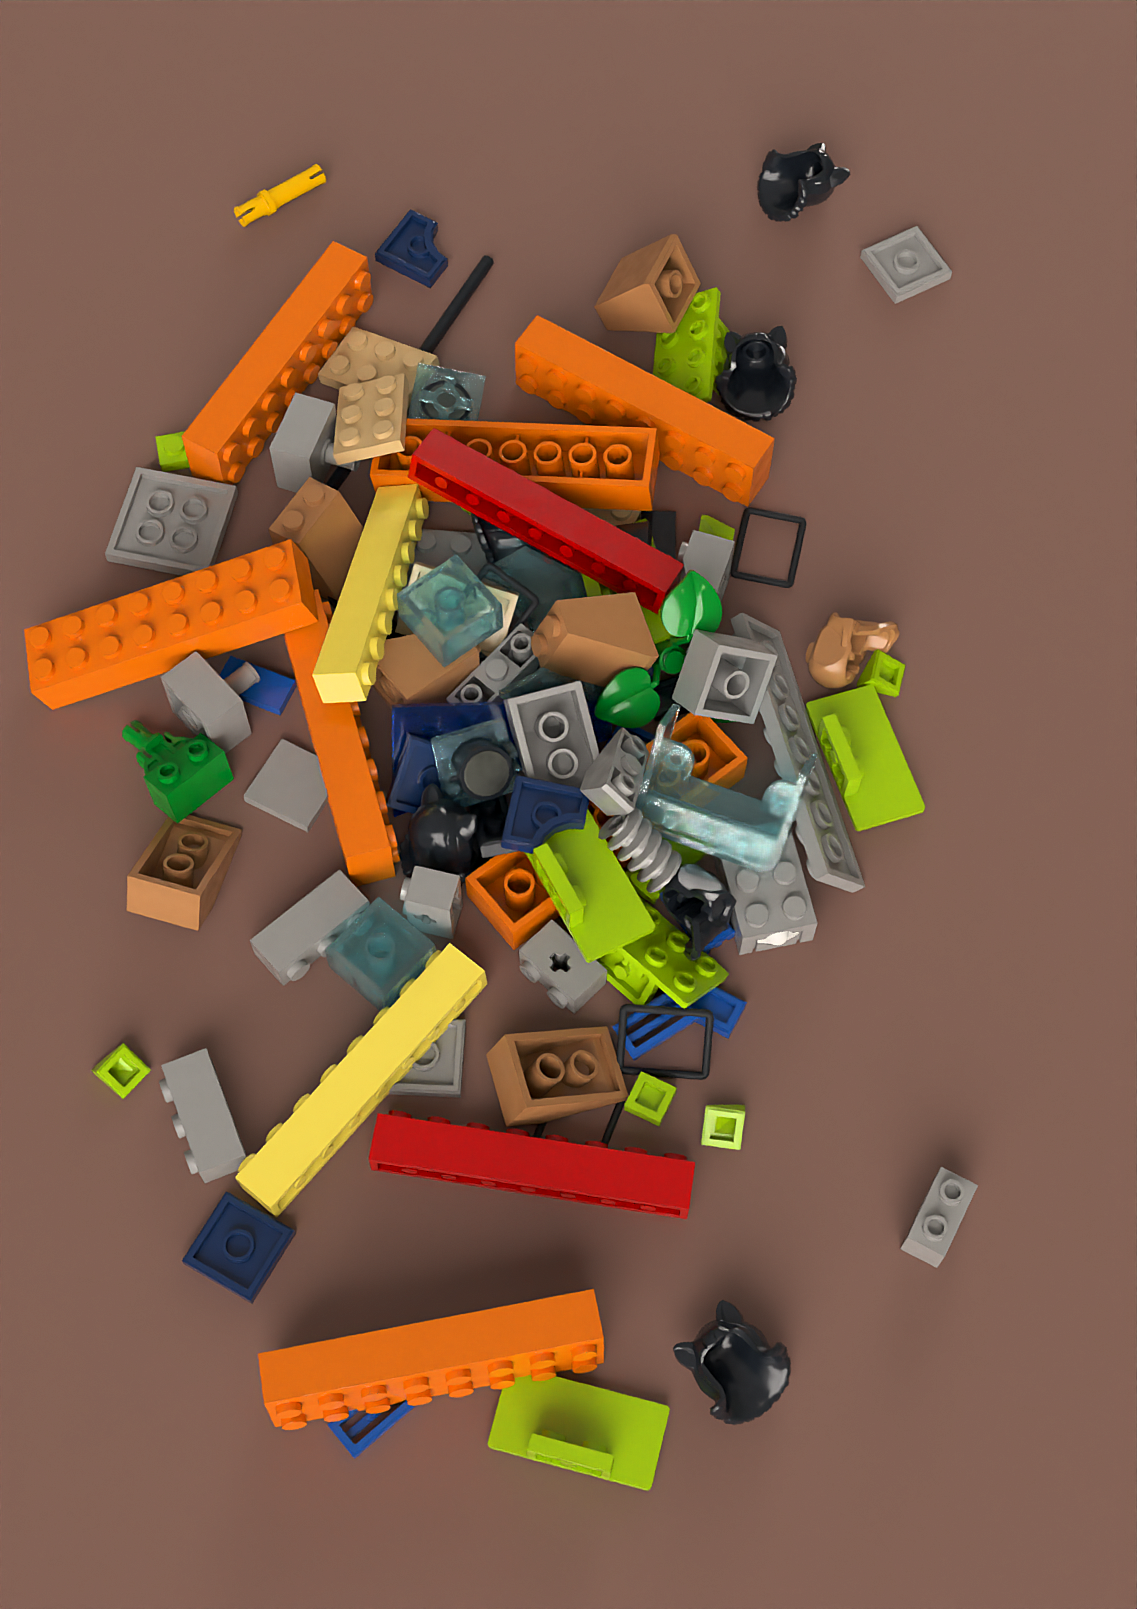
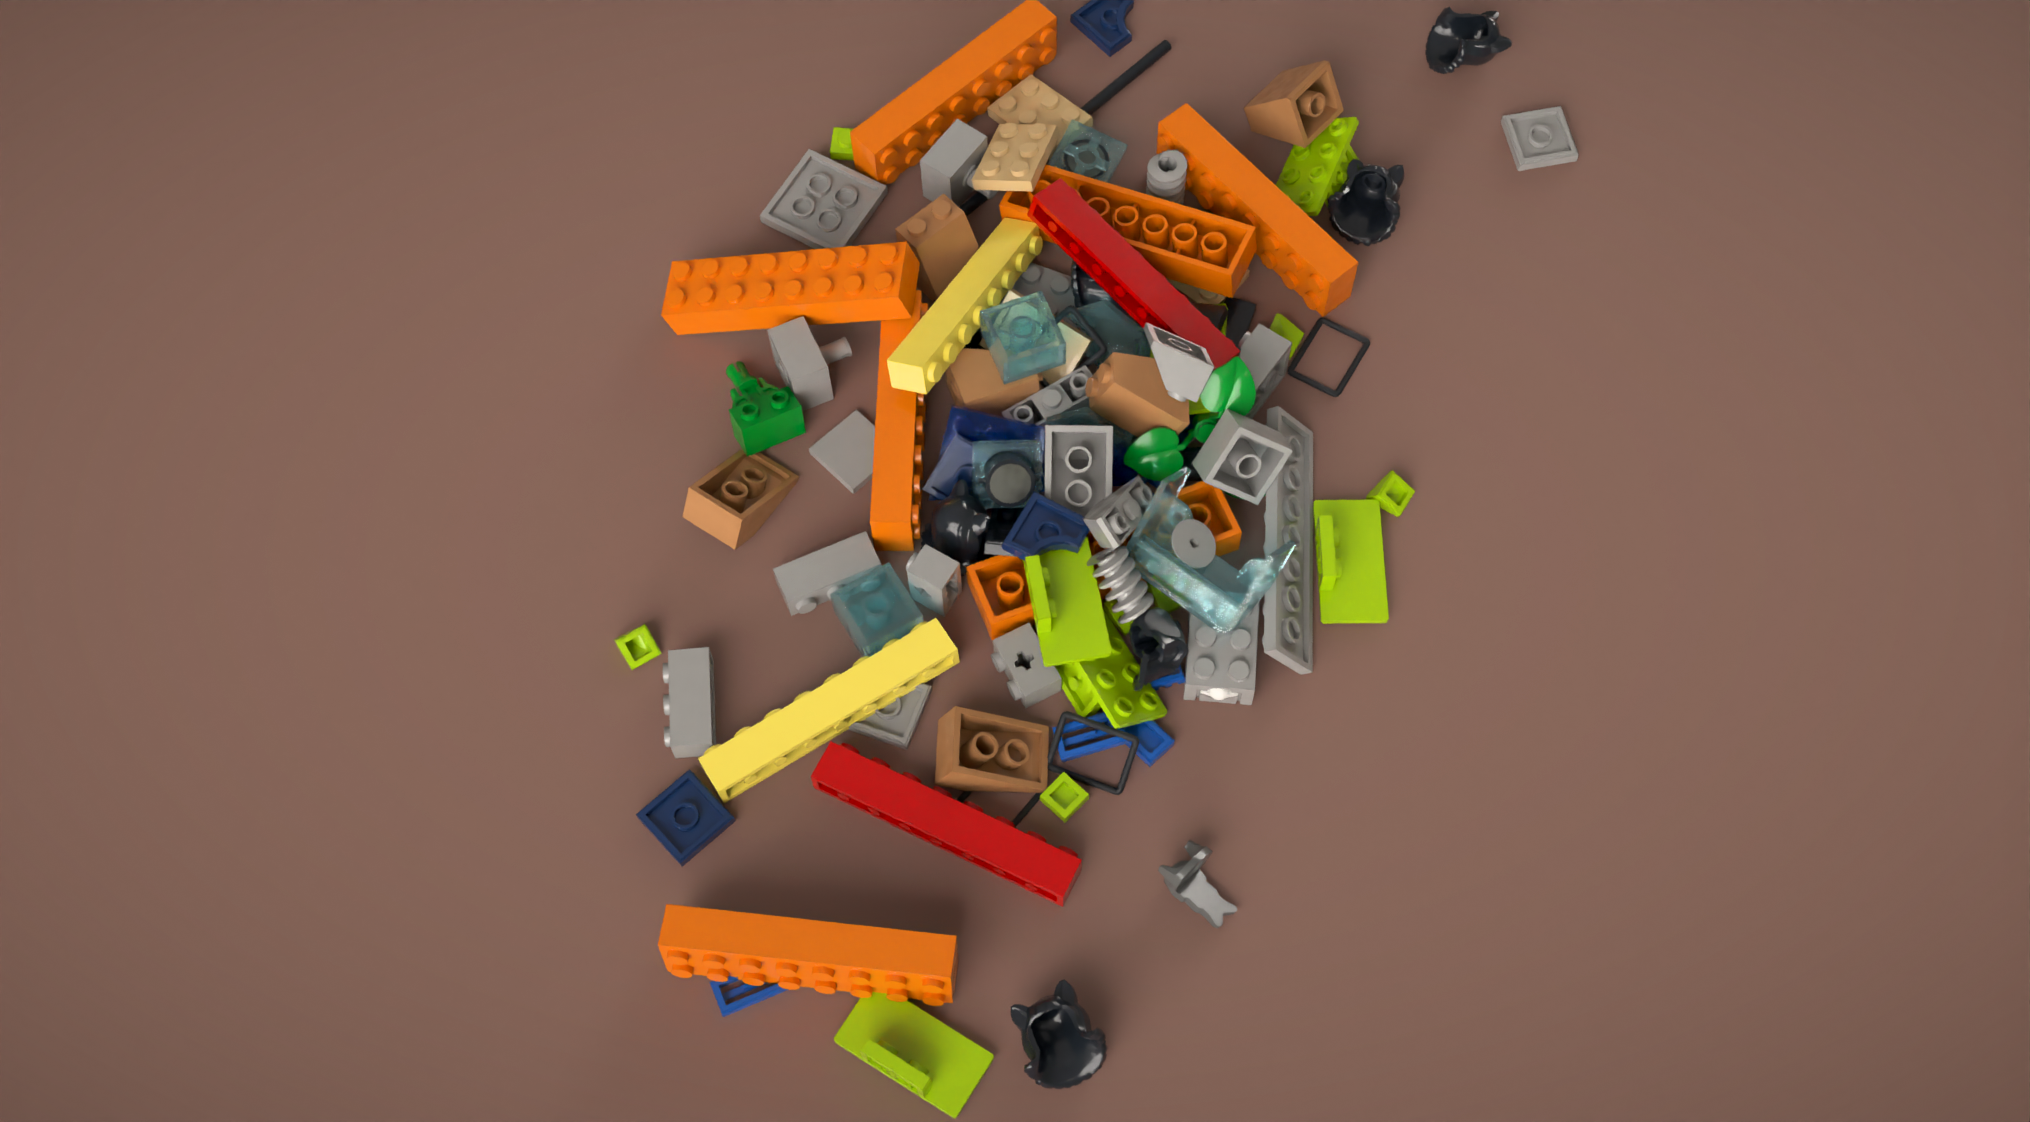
camera: 20 degrees right, 0 degrees up
(269, 693) = (858, 368): blue tile -> none
(540, 398) = (1167, 176): none -> light grey piece
(631, 594) = (1181, 363): none -> light grey slope
(704, 784) = (1193, 543): none -> light grey piece
(723, 1126) = (1119, 838): lime slope -> none
(817, 1156) = (1190, 885): none -> dark grey hair
(842, 648) = (1363, 460): medium nougat head -> none
(939, 1217) = (1276, 969): light grey brick -> none

